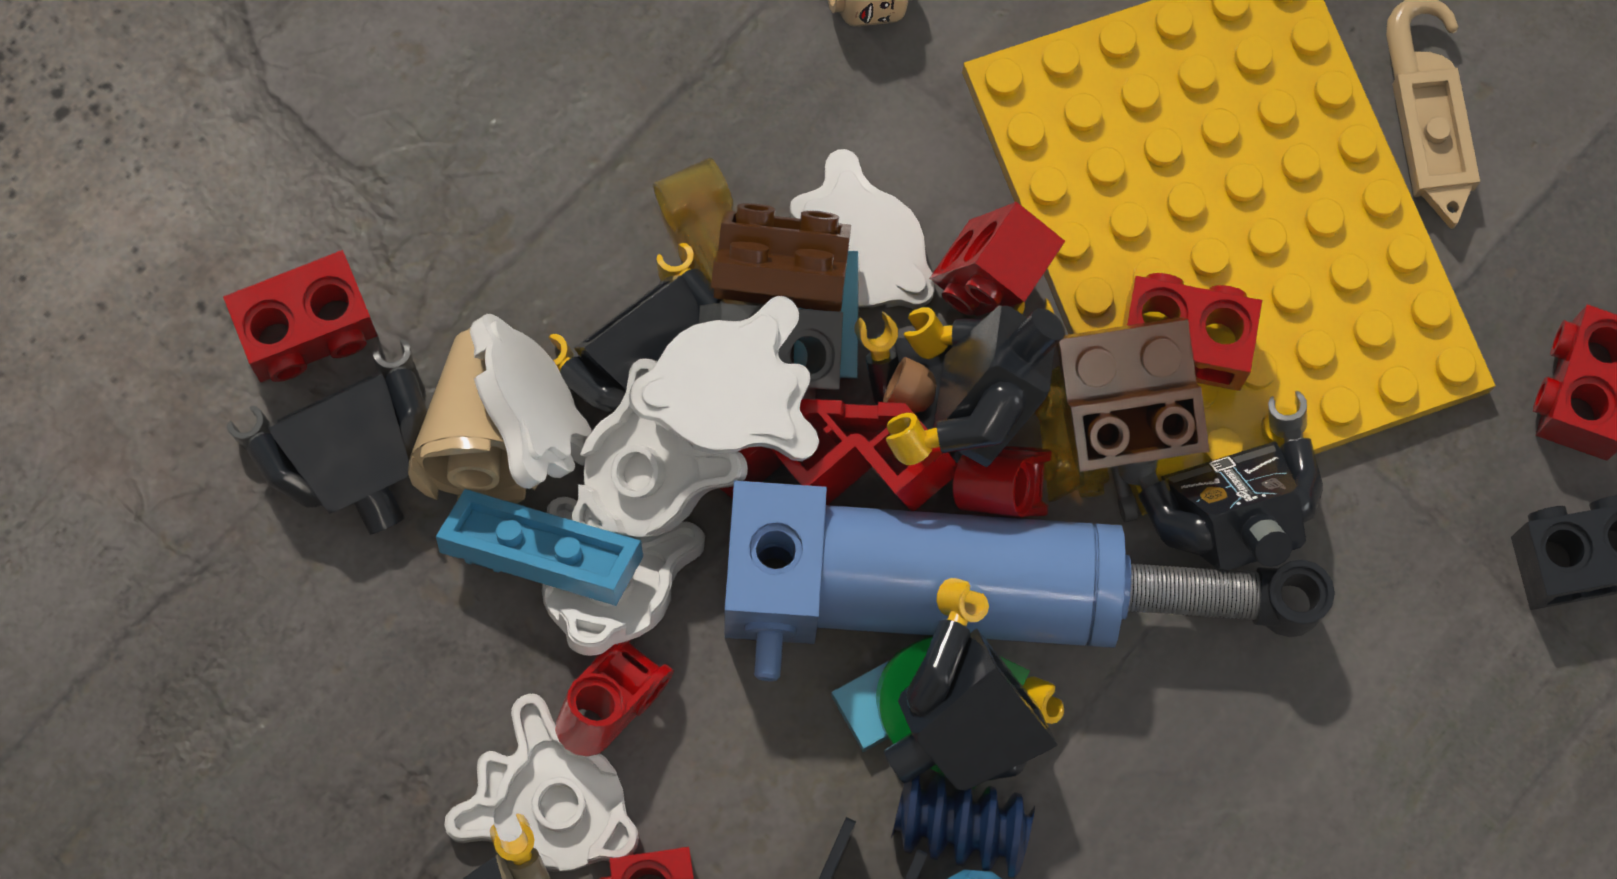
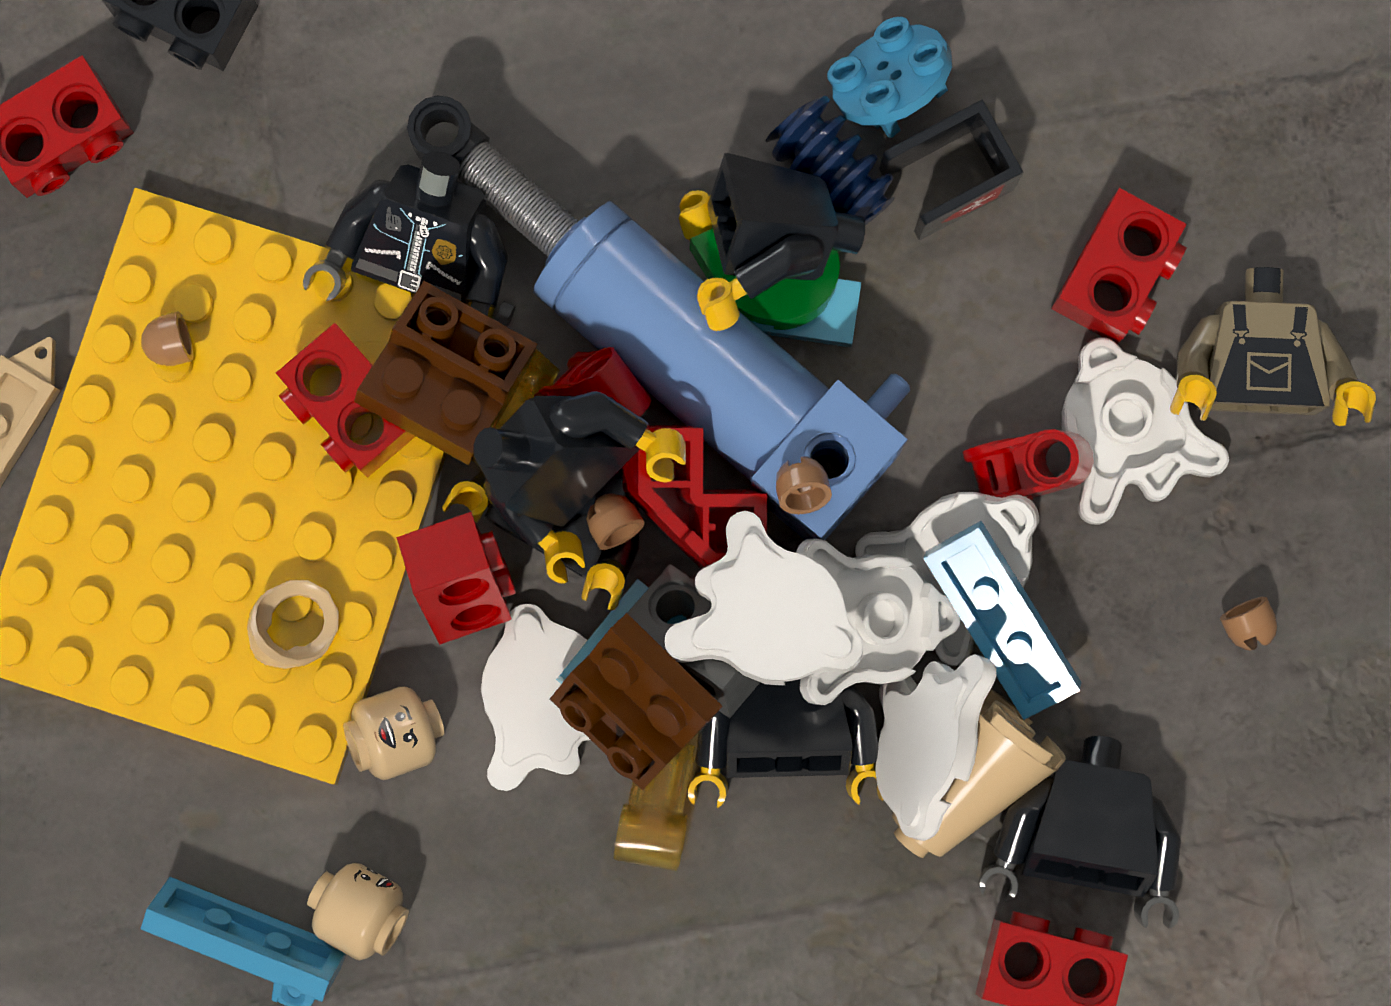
camera: 140 degrees left, 10 degrees up
(333, 710) = (1250, 622): none -> medium nougat hinge
(781, 502) = (802, 486): none -> medium nougat hinge
(950, 127) = (393, 733): none -> tan head
(1097, 109) = (261, 619): none -> tan piece
(1364, 278) = (167, 340): none -> medium nougat hinge

